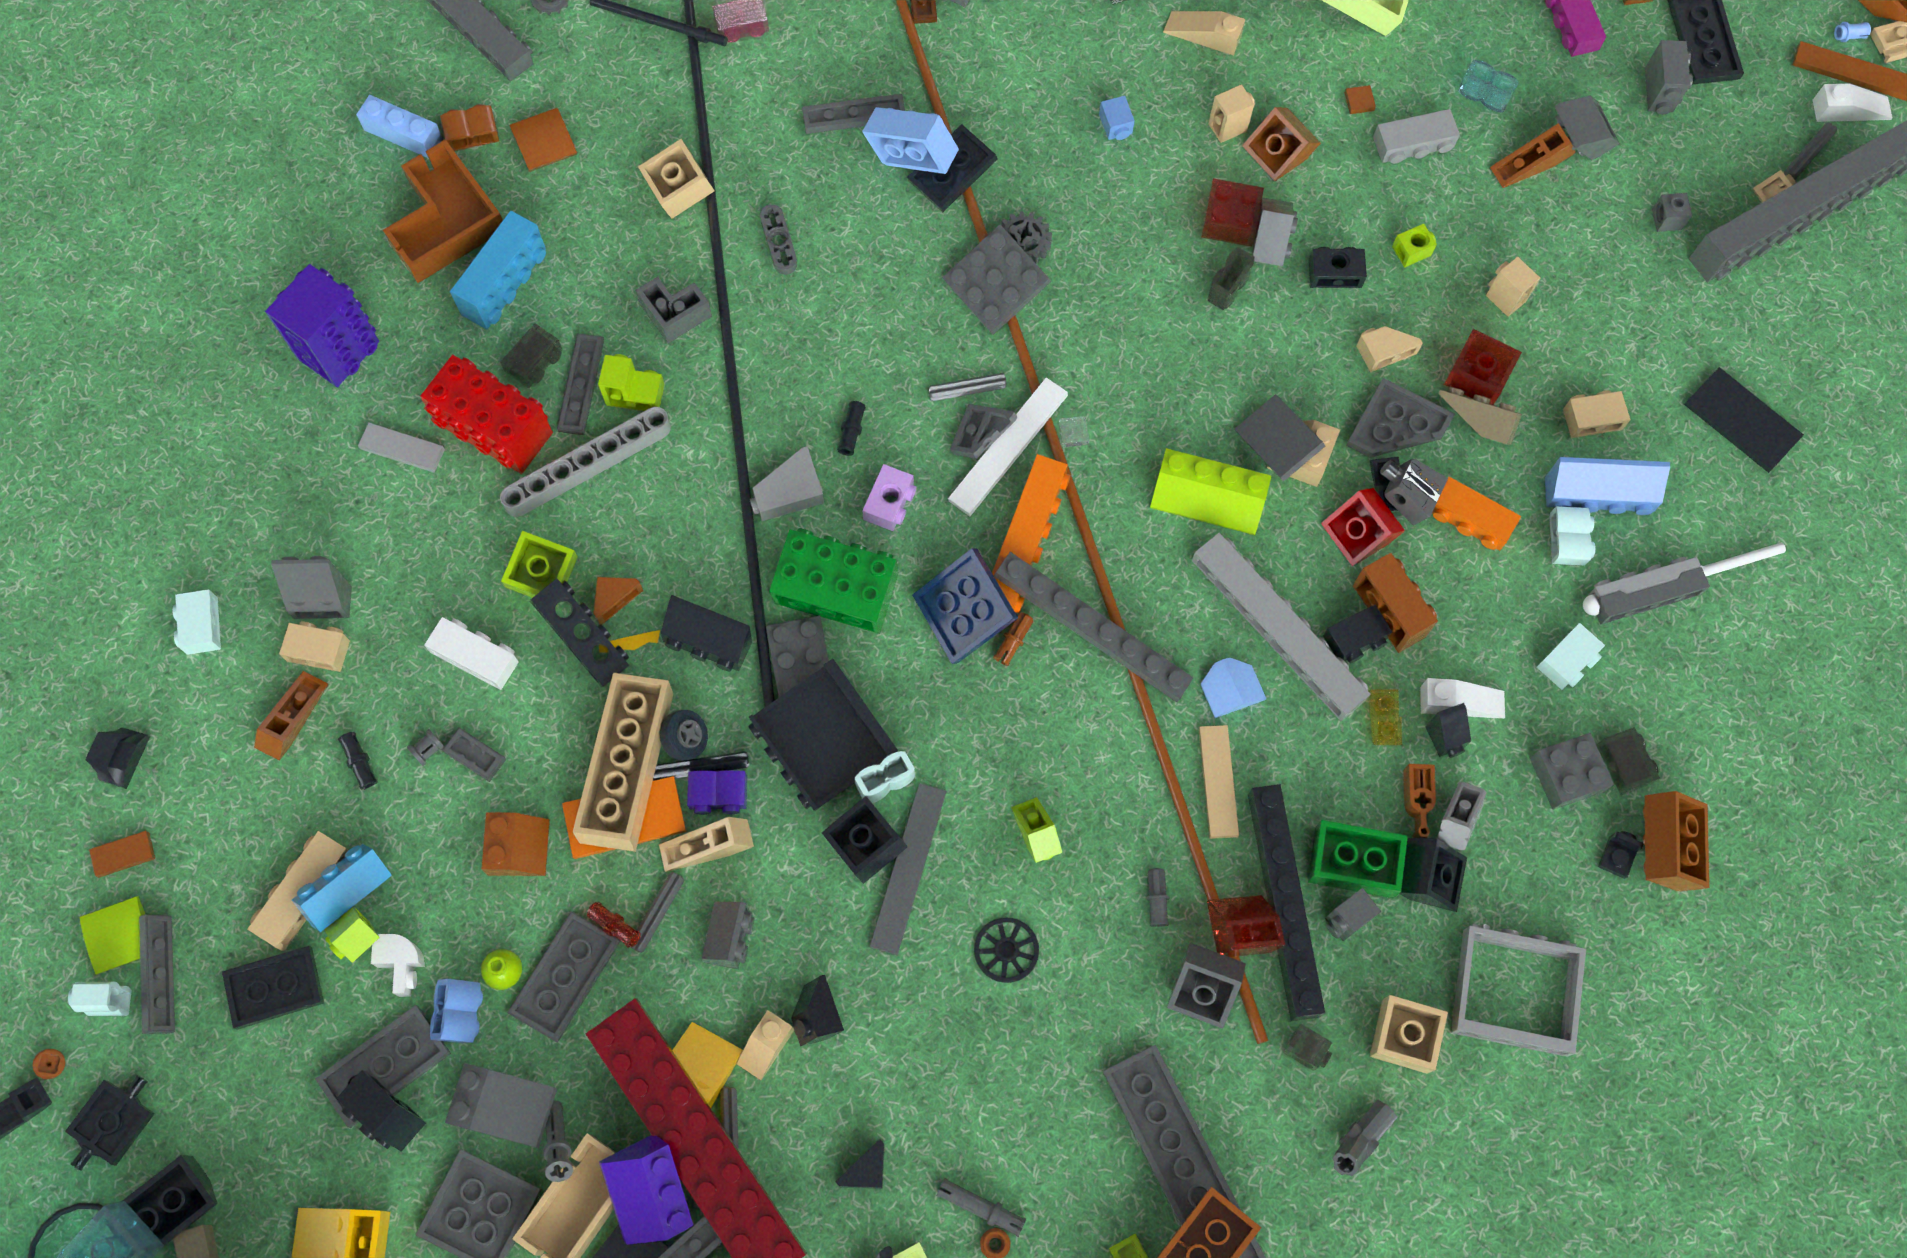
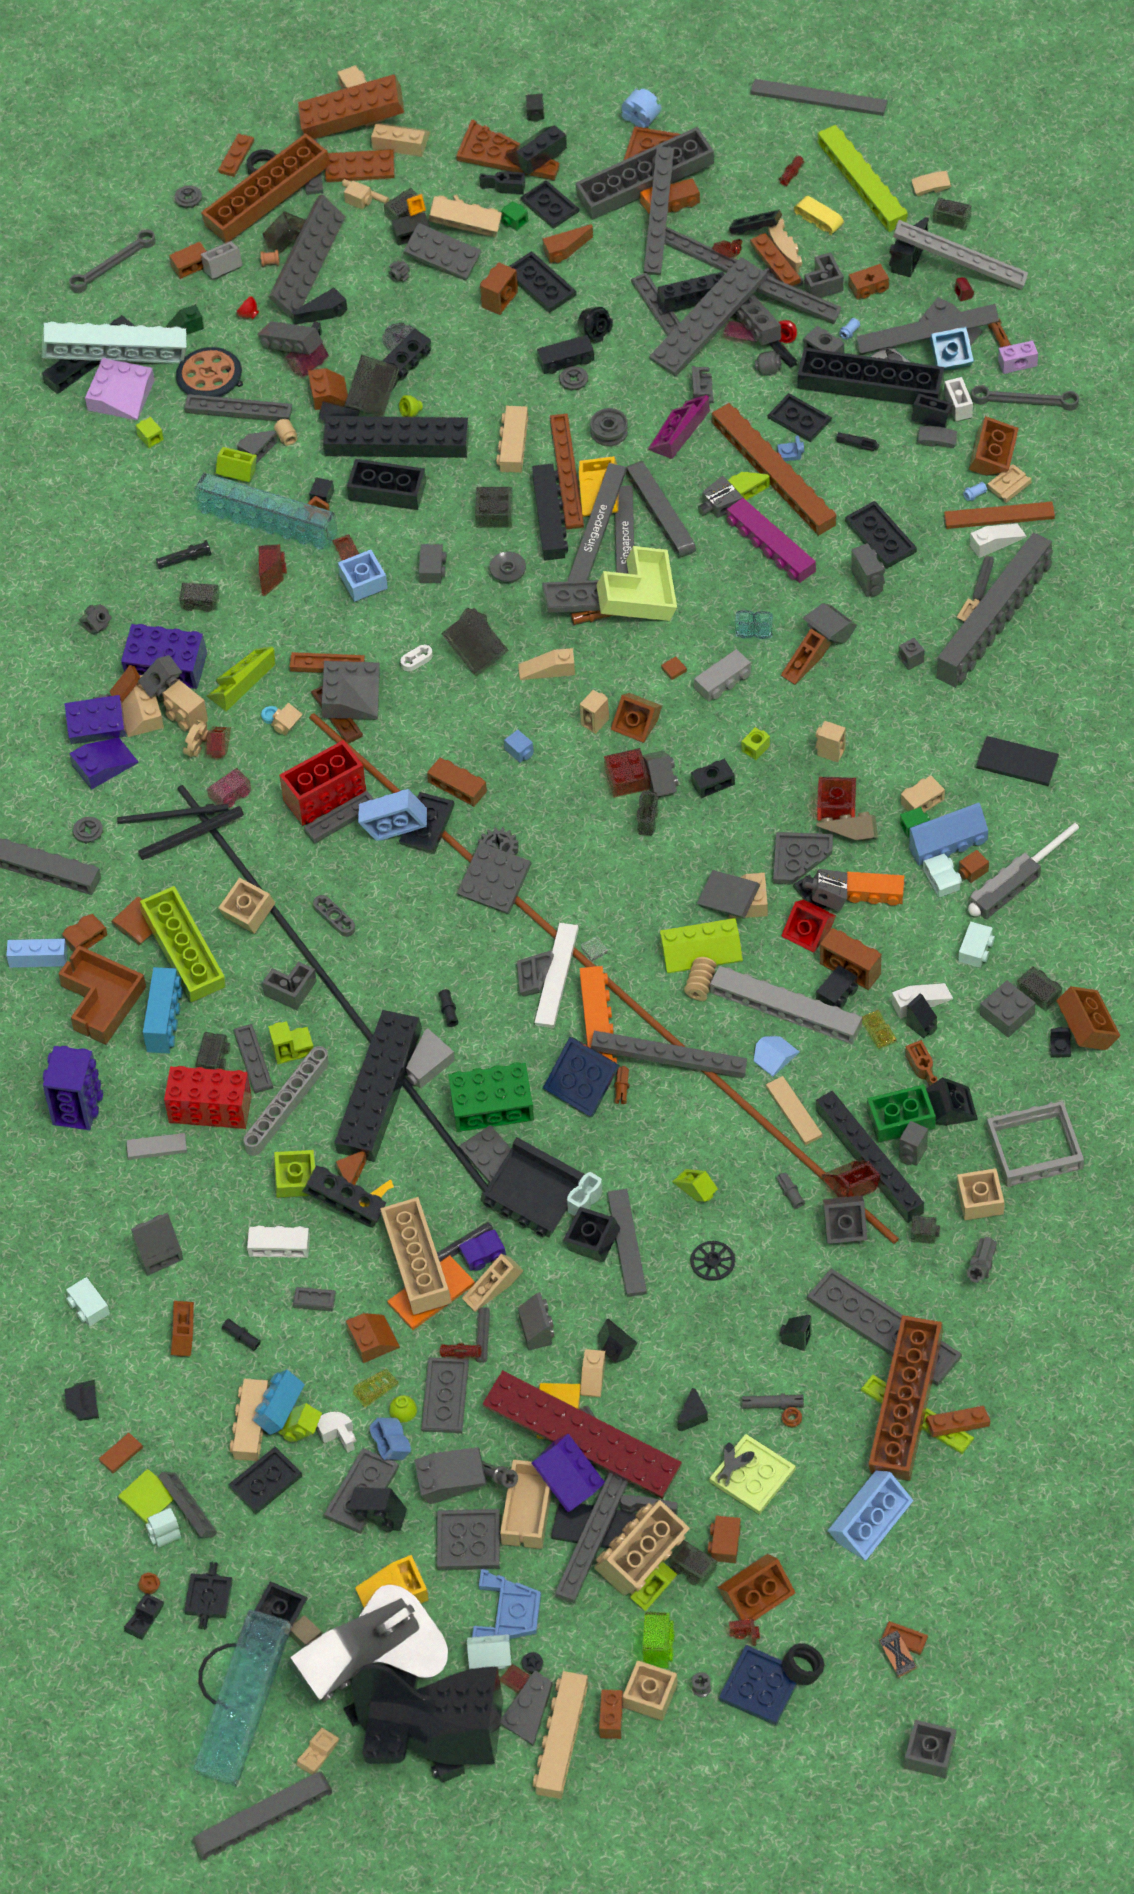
camera: 20 degrees left, 15 degrees down
(315, 646) = (174, 1282): tan brick -> none
(425, 747) = (281, 1307): dark grey bush -> none
(485, 929) = (367, 1396): none -> clear yellow slope
(570, 194) = (182, 943): none -> lime brick
(665, 54) = (190, 833): none -> black axle
(693, 732) = (443, 1227): black wheel -> none
(705, 496) = (378, 1085): none -> black brick
(705, 634) = (425, 1163): black slope -> none
(850, 59) = (322, 782): none -> red brick
(889, 483) = (494, 1028): lavender brick -> none
(967, 386) = (510, 952): axle -> none
(1017, 130) = (457, 781): none -> dark orange brick
(1060, 1120) = (796, 1332): none -> black slope
(1185, 535) = (700, 978): none -> tan piece
(1386, 346) = (769, 812): tan slope -> none
(1462, 815) = (952, 1060): light grey brick -> none
(1569, 443) = (912, 818): none -> green brick
(1618, 543) = (973, 866): none -> dark orange brick

